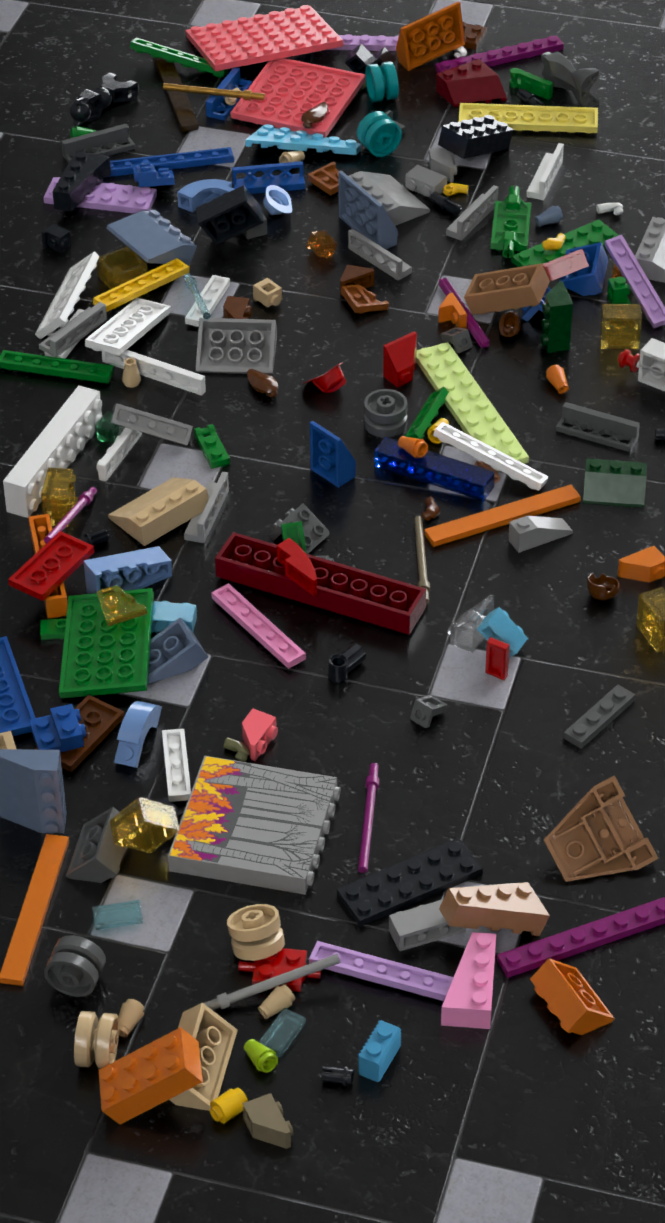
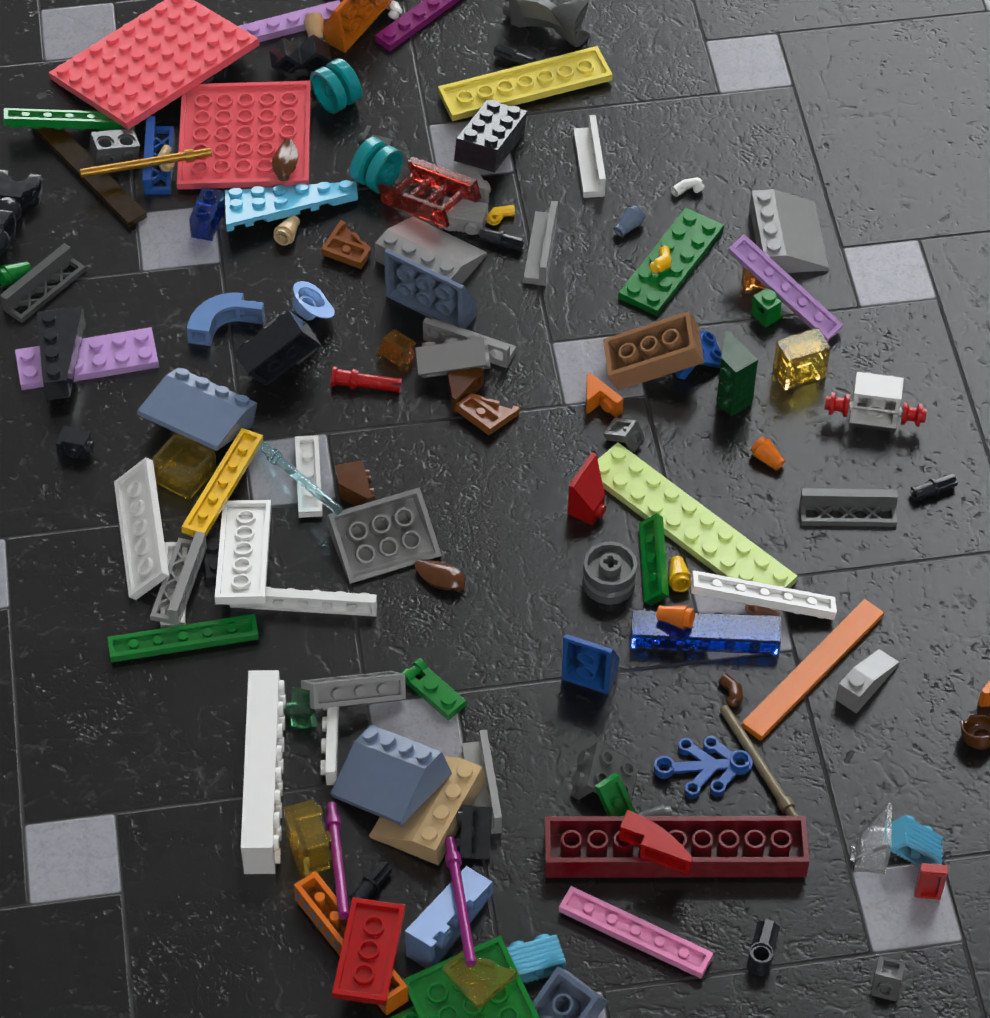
camera: 25 degrees left, 10 degrees up
(131, 375) = (282, 619): tan cone -> none
(141, 476) = (390, 775): none -> sand blue slope
(148, 176) = (140, 313): blue plate -> none
(149, 539) = (453, 862): none -> magenta bar
(174, 161) = (144, 277): blue tile -> none
(178, 529) = (475, 832): none -> black bracket
(200, 77) = (114, 146): none -> dark grey brick
(237, 133) = (207, 214): none -> clear blue brick
(259, 184) = (278, 273): blue fence -> none
(270, 296) = (374, 442): tan brick -> none
(279, 255) = (355, 379): none -> red pin
(330, 380) = (515, 545): red piece -> none
(356, 254) = (452, 356): none -> light grey brick
(391, 44) = (314, 24): none -> tan cone
(402, 551) = (706, 764): none -> blue plant
(408, 158) = (430, 176): none -> clear red fence
(469, 84) = (434, 55): dark red wedge -> none
(472, 324) = (629, 406): magenta axle -> none
(509, 324) = (671, 393): reddish brown arm -> none
(511, 224) = (593, 246): green plate -> none
(531, 83) = (501, 32): green plate -> none
(566, 265) = (689, 297): fence -> none
(590, 279) = (713, 288): blue slope -> none
(615, 483) = (911, 581): slope -> none

